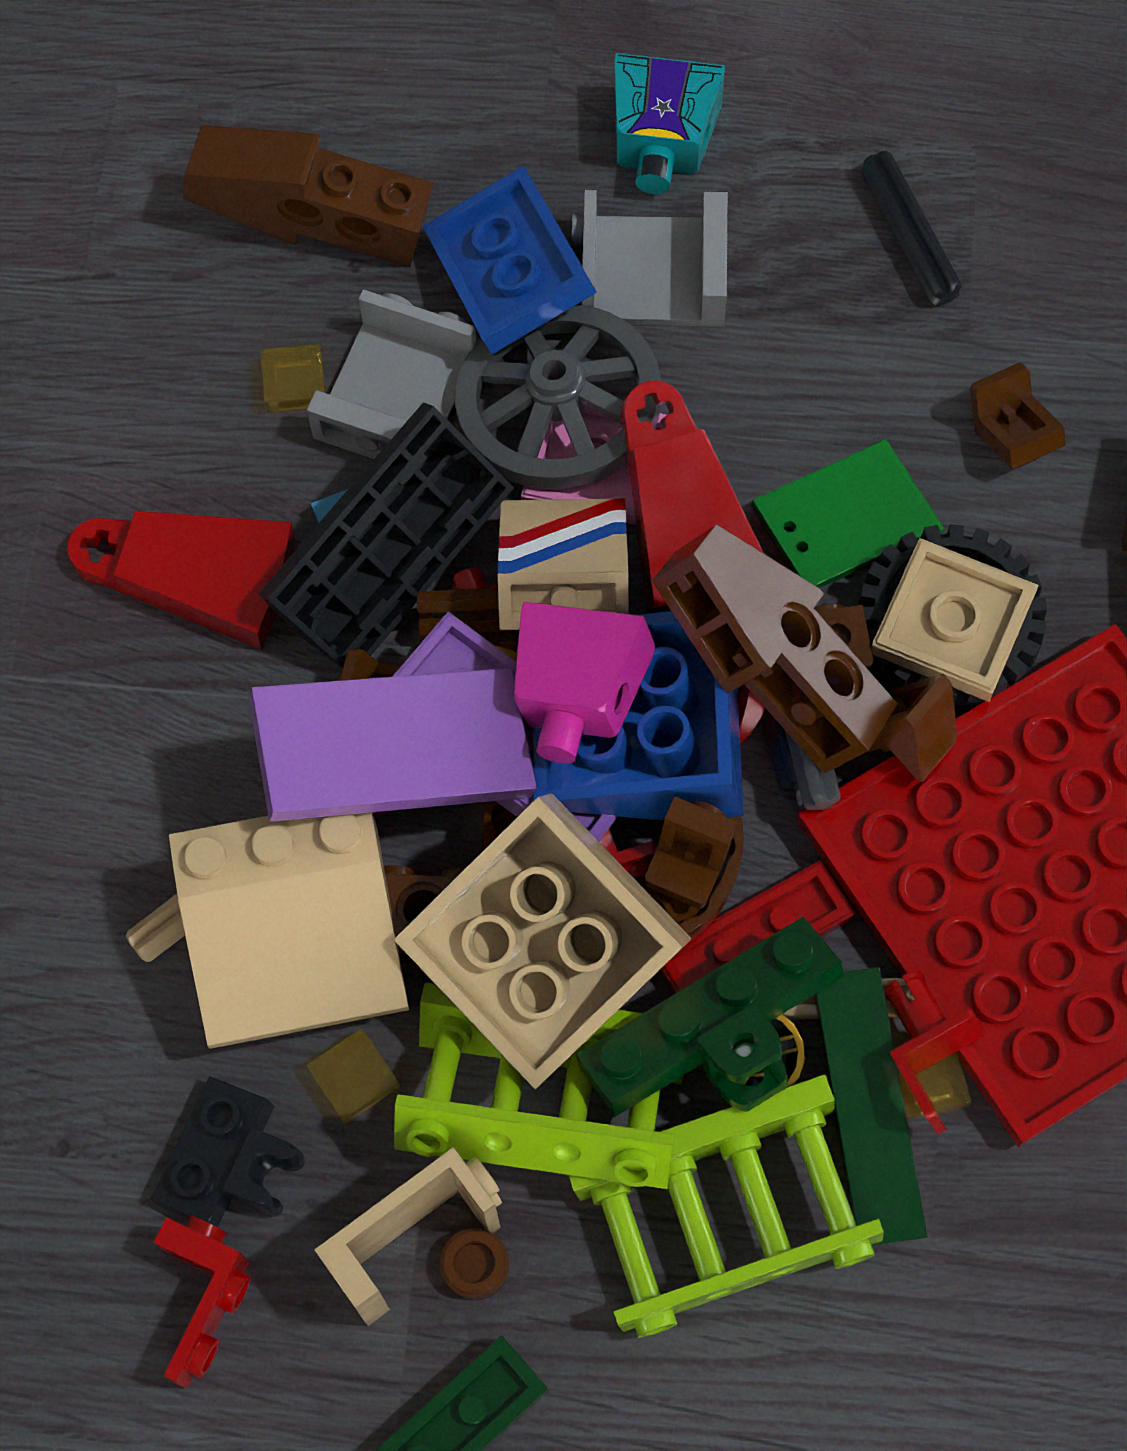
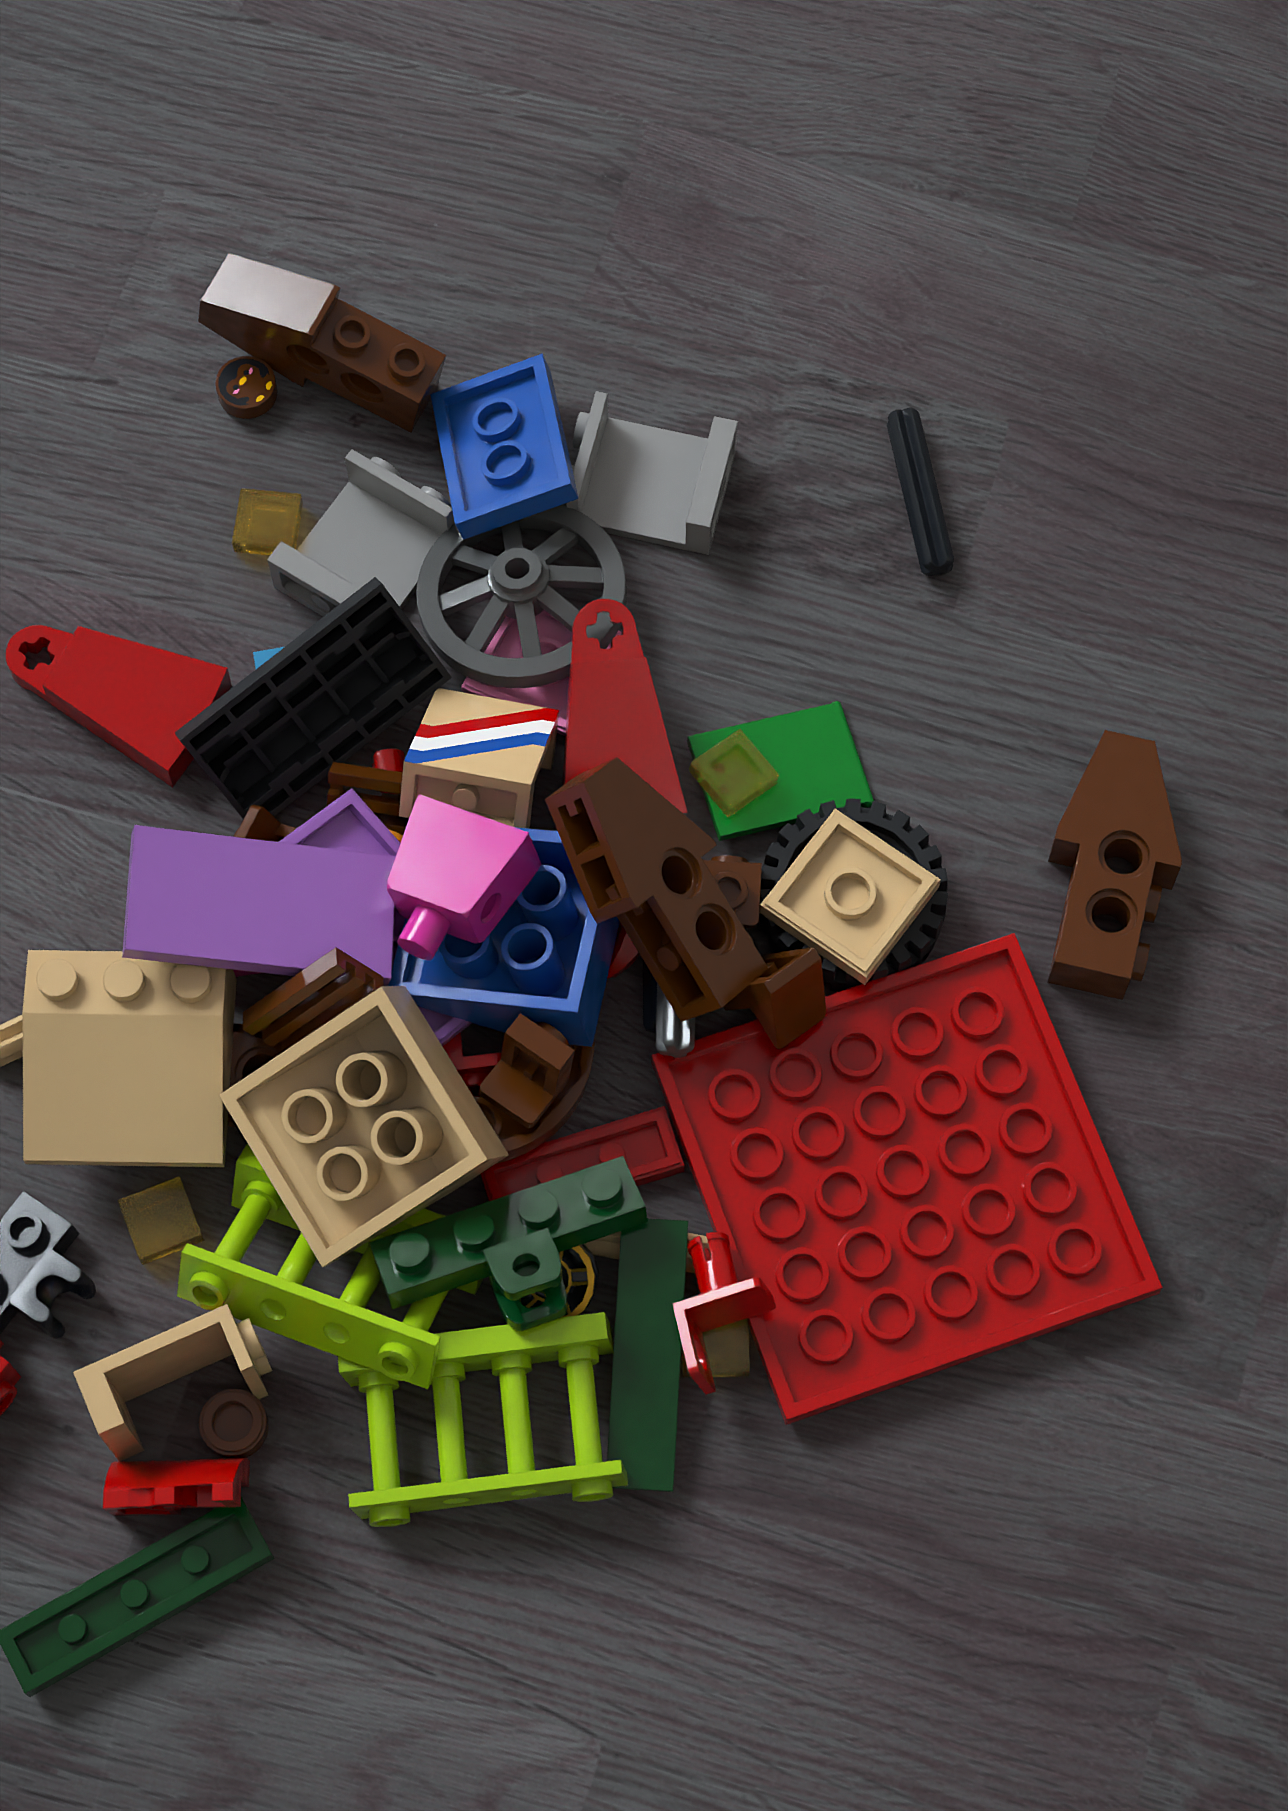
camera: 10 degrees right, 0 degrees up
(242, 254) = (246, 387): none -> reddish brown tile
(434, 1339) = (169, 1485): none -> red slope
(466, 832) = (318, 1003): none -> reddish brown tile
(664, 116) = (699, 329): teal torso -> none
(806, 525) = (733, 773): none -> clear yellow tile
(1012, 418) = (969, 705): reddish brown bracket -> none

